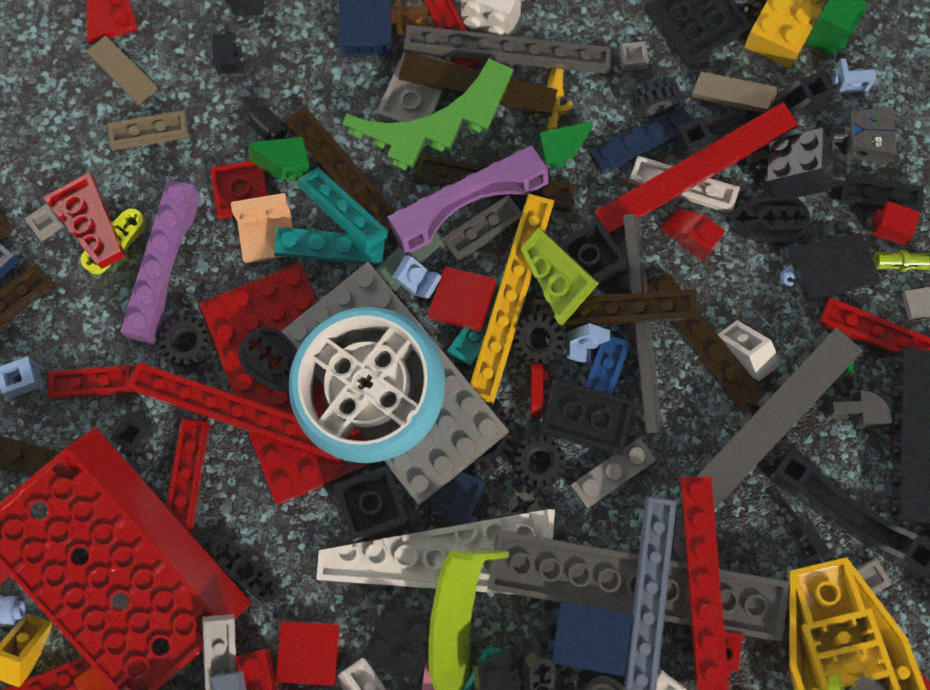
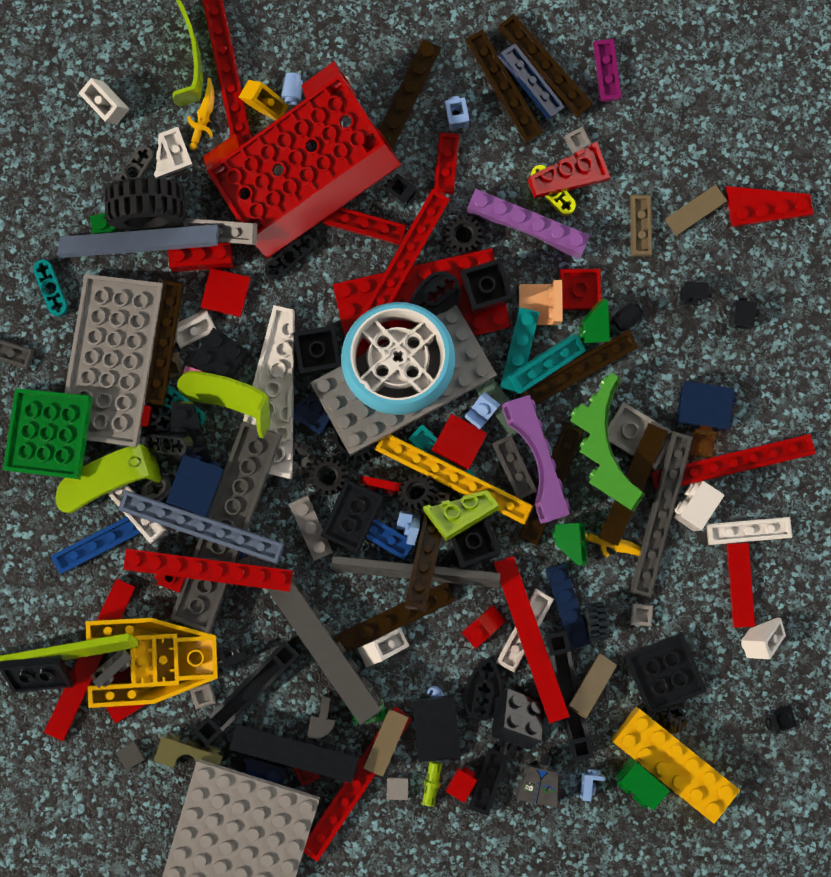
camera: 95 degrees right, 10 degrees up
(251, 293) = (486, 286): none -> black brick
(870, 322) = (386, 742): none -> dark tan tile

